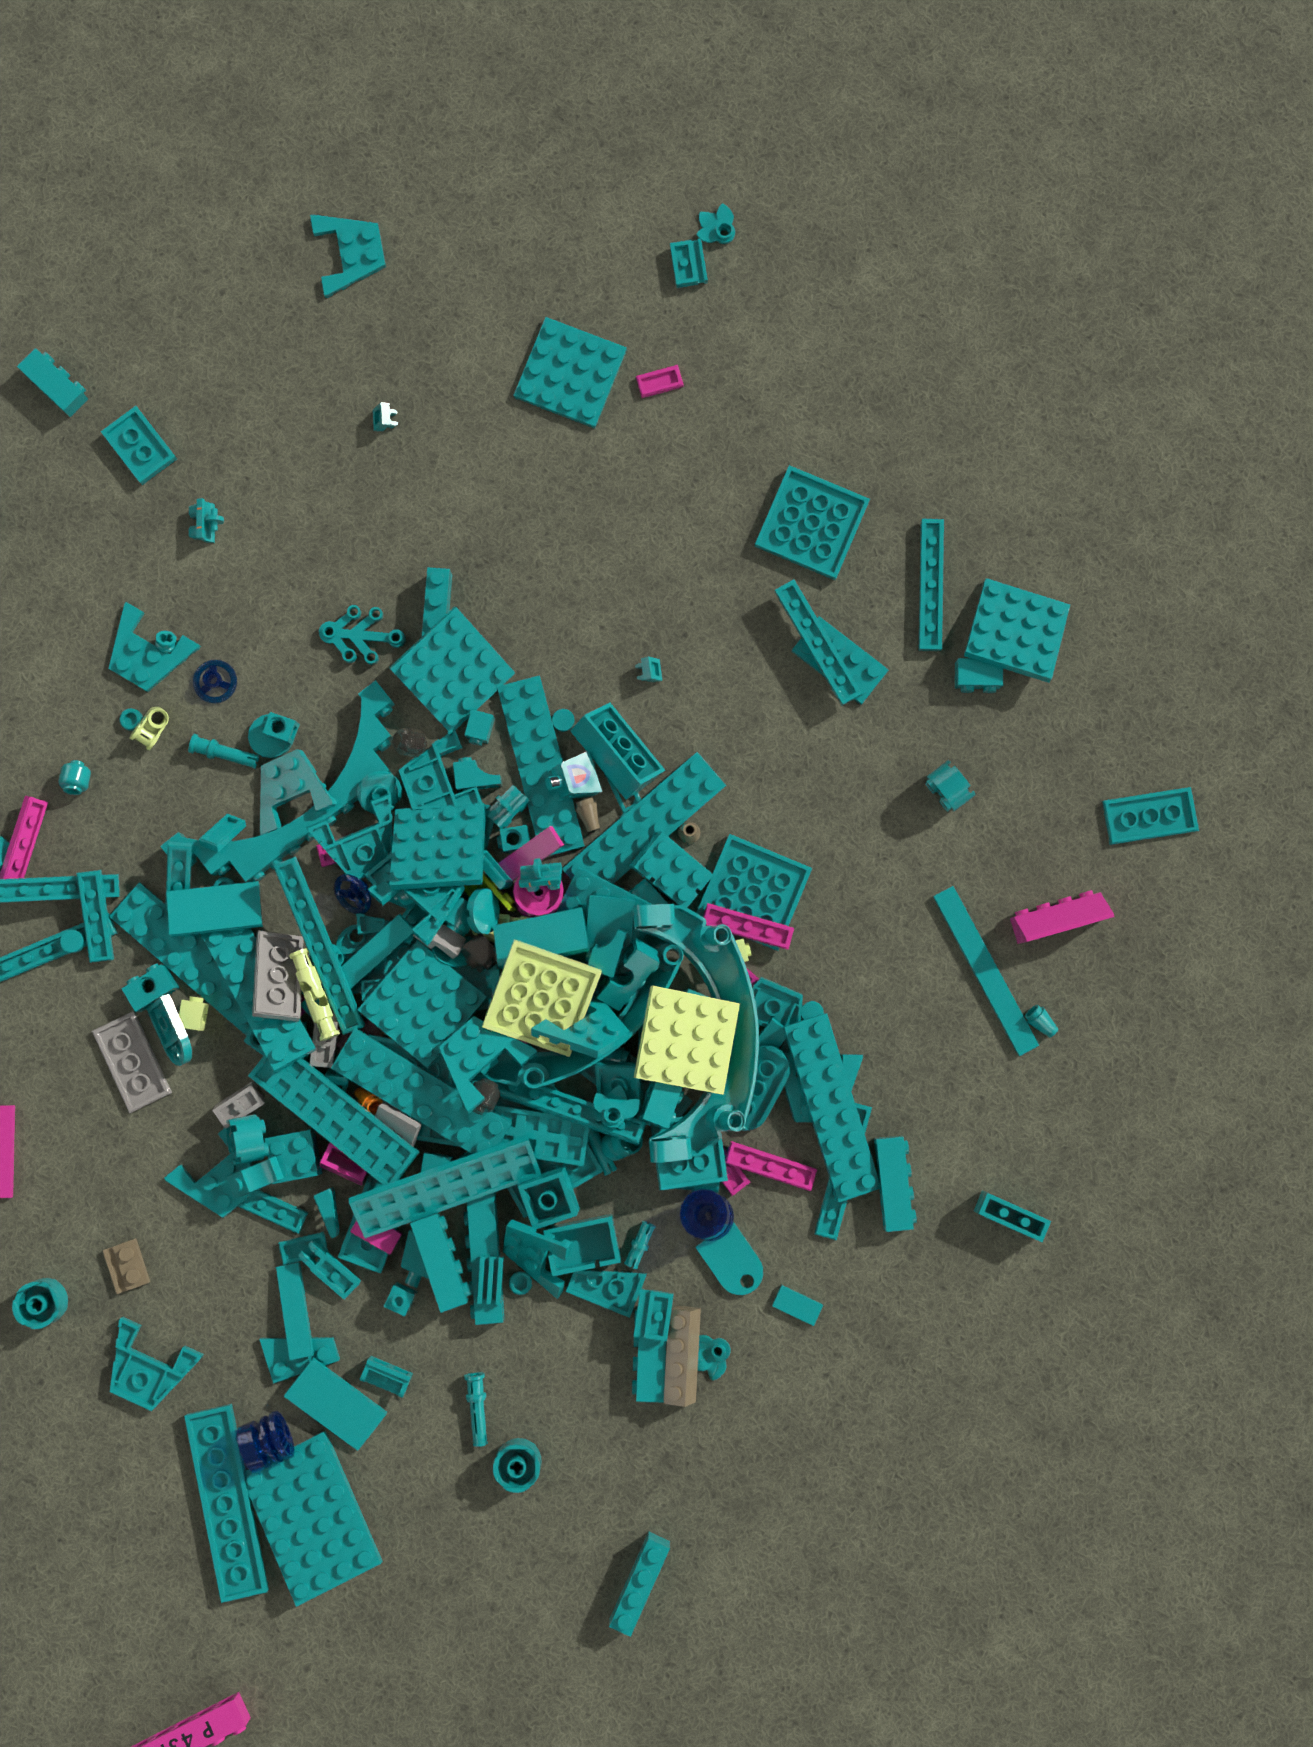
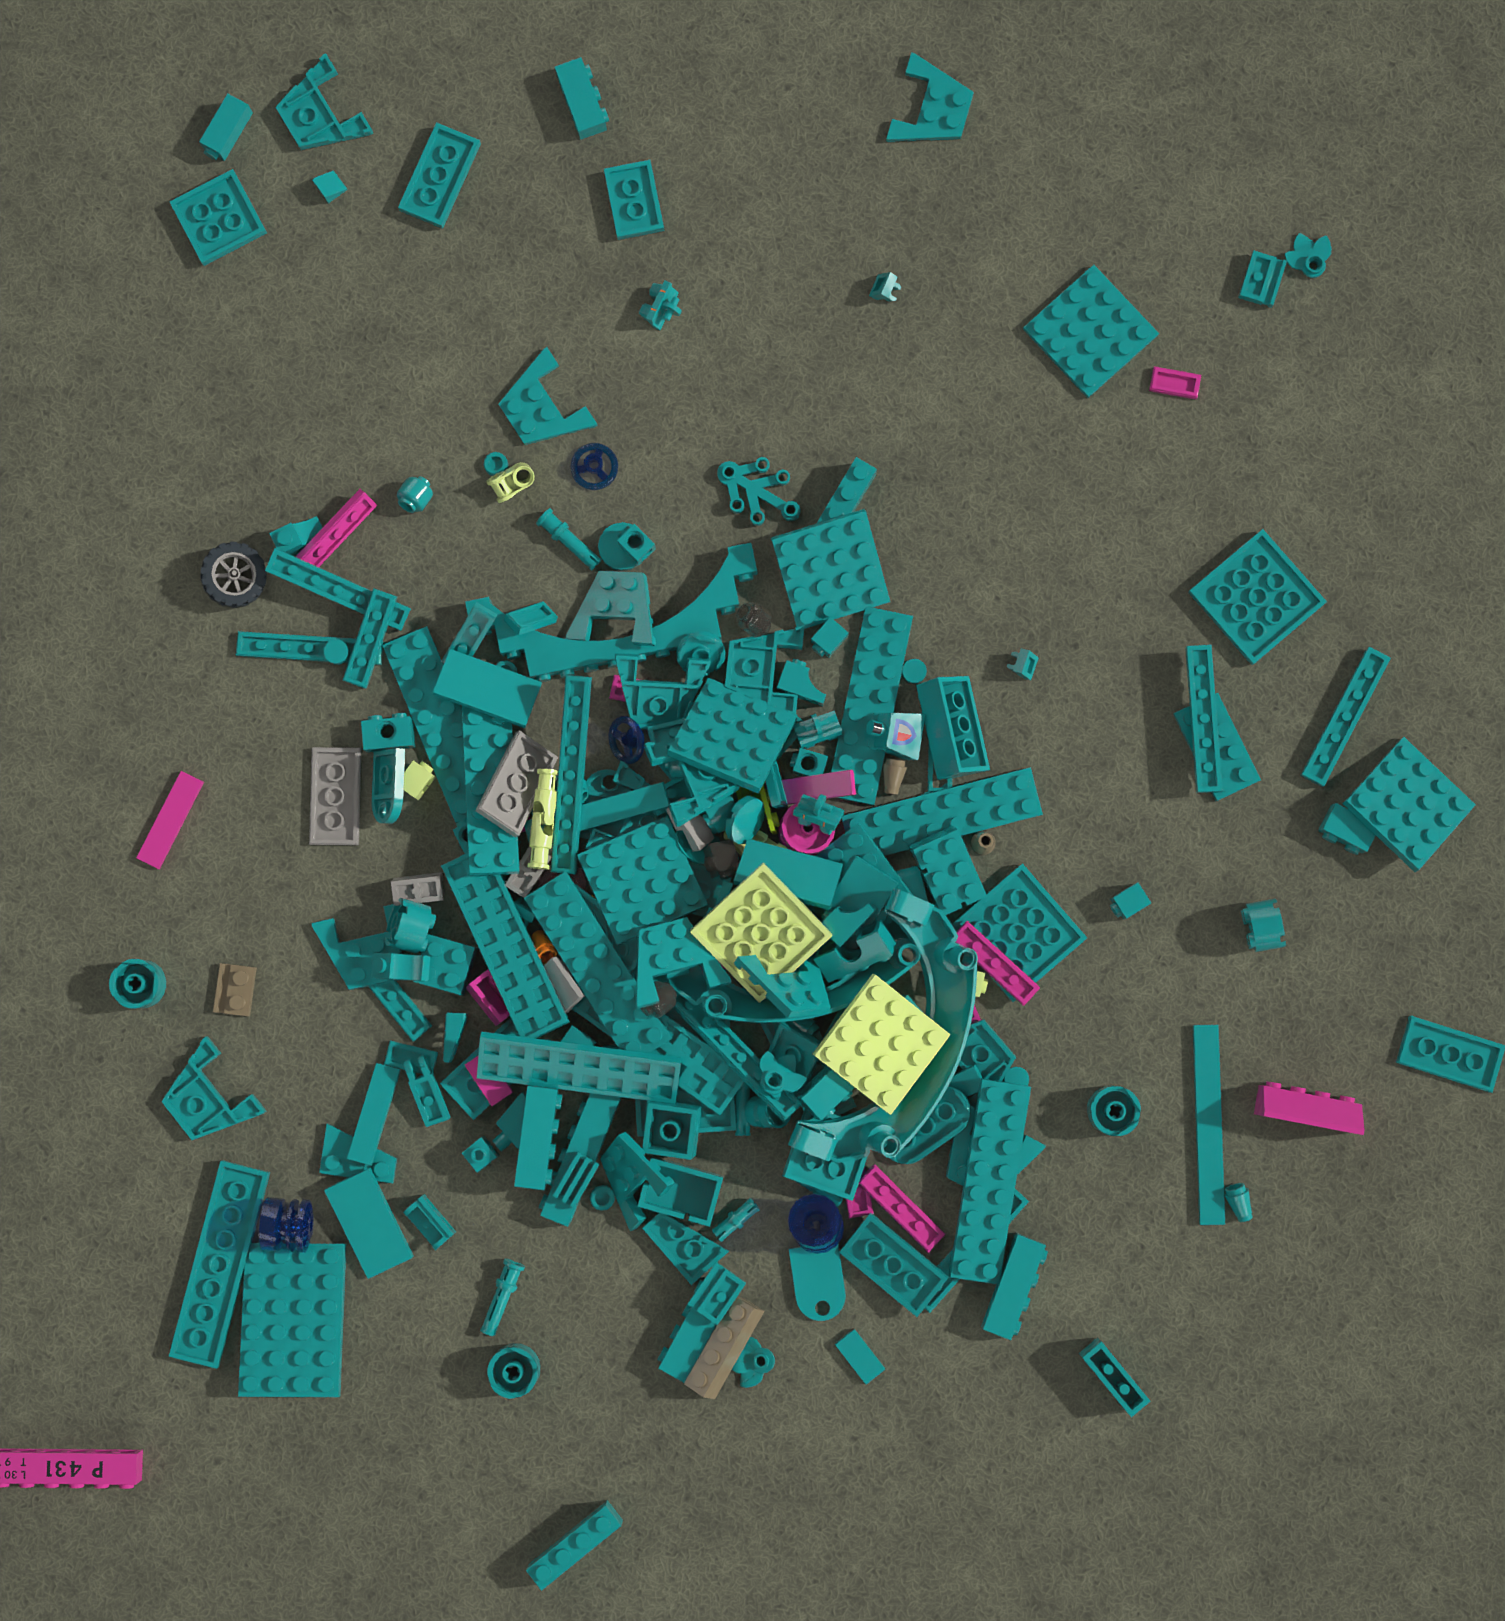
camera: 35 degrees right, 0 degrees up
(162, 641) = (566, 404): teal bush -> none
(787, 1216) = (894, 1264): none -> teal plate
(832, 821) = (1129, 901): none -> teal brick
(916, 996) = (1128, 1112): none -> teal brick

